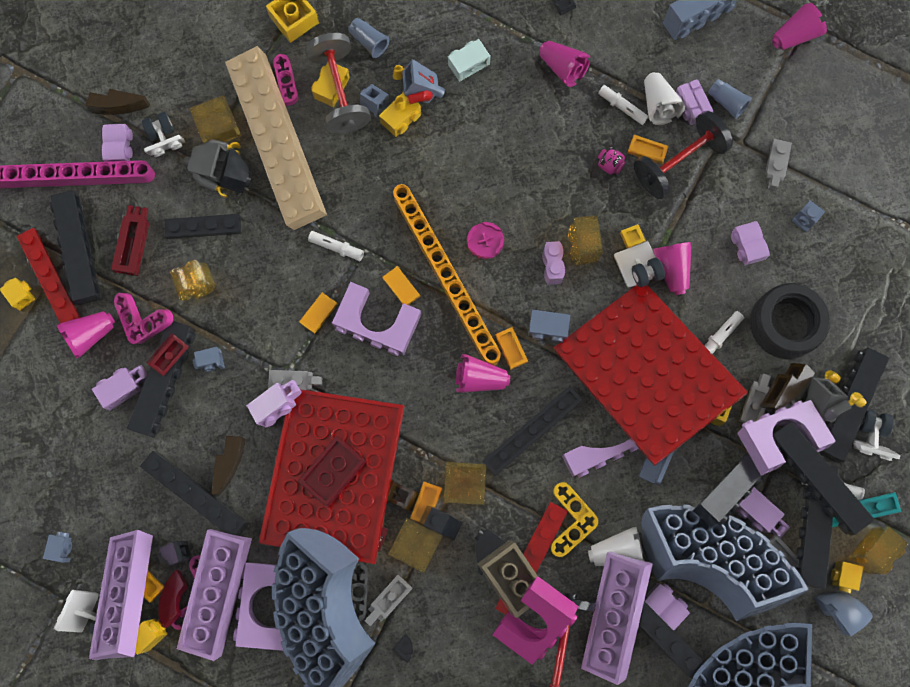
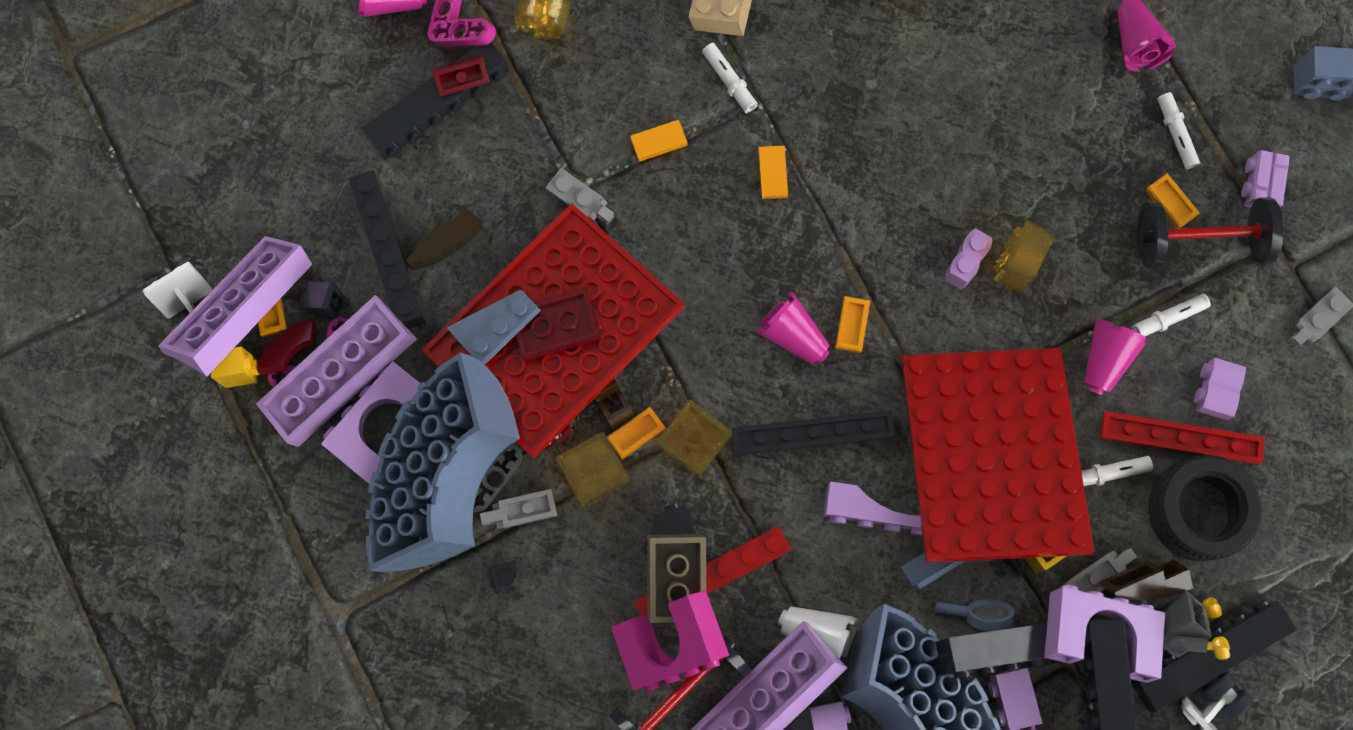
camera: 30 degrees right, 0 degrees up
(58, 547) = (203, 209): sand blue brick -> none
(119, 387) = (384, 78): lavender brick -> none
(208, 359) = (501, 112): sand blue brick -> none
(274, 403) = (541, 207): lavender brick -> none
(295, 498) = (494, 326): none -> sand blue wing
(394, 339) = (725, 225): lavender arch -> none
(440, 522) = (638, 464): black slope -> none
(445, 265) = (838, 179): light orange beam -> none
(485, 240) = (906, 183): dark pink tile -> none
(549, 326) = (913, 327): sand blue brick -> none
(579, 516) = (799, 565): yellow beam -> none
(611, 161) = (1118, 186): dark pink head -> none
(632, 236) = (1083, 290): yellow plate -> none
(639, 265) = (1068, 327): white plate -> none
(661, 100) = (1228, 154): white cone -> none
(689, 224) = (1160, 321): none -> white pin
(706, 472) = (982, 614): none -> sand blue piece
(730, 98) = (1314, 204): sand blue plant -> none
(747, 287) = (1181, 437): none -> red plate
(808, 216) = (1313, 402): sand blue brick -> none

